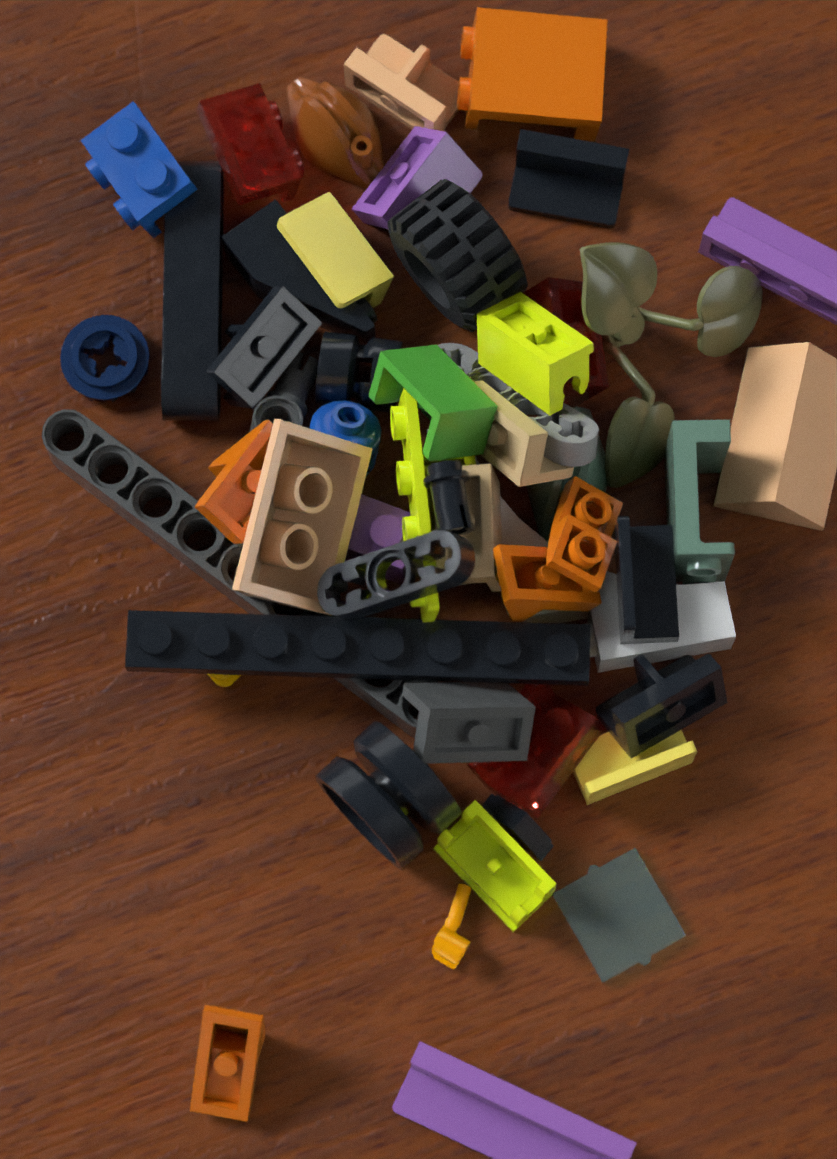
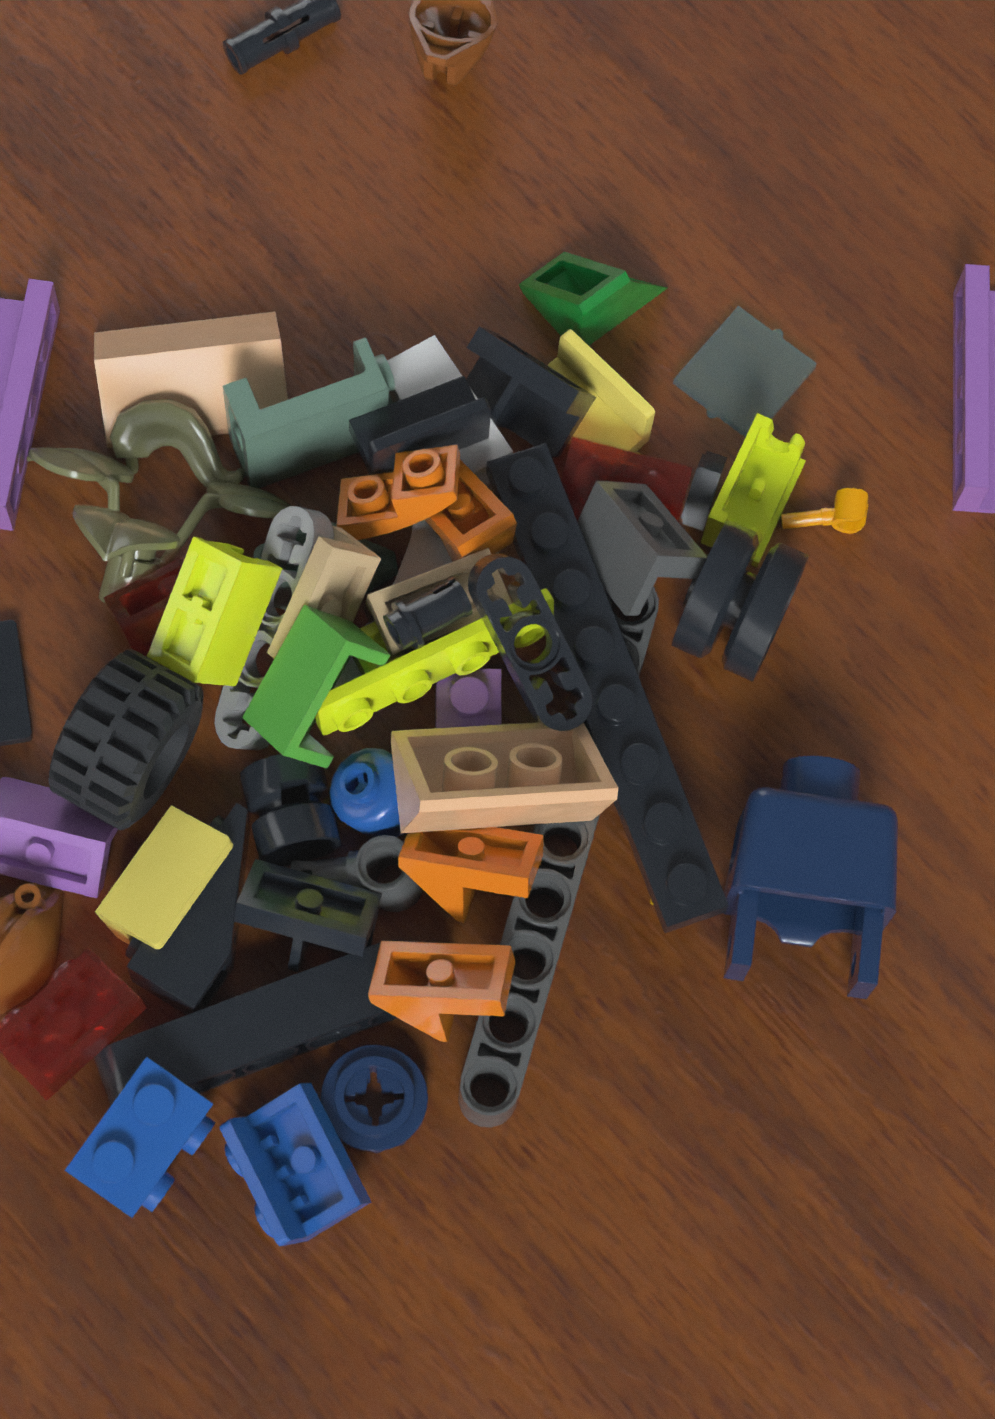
camera: 120 degrees left, 5 degrees down
(74, 274) = (294, 1166): none -> blue bracket
(141, 762) = (813, 867): none -> dark blue piece
(160, 421) = (436, 980): none -> orange slope
(742, 383) = (170, 423): none -> olive piece
(743, 801) = (586, 295): none -> green slope

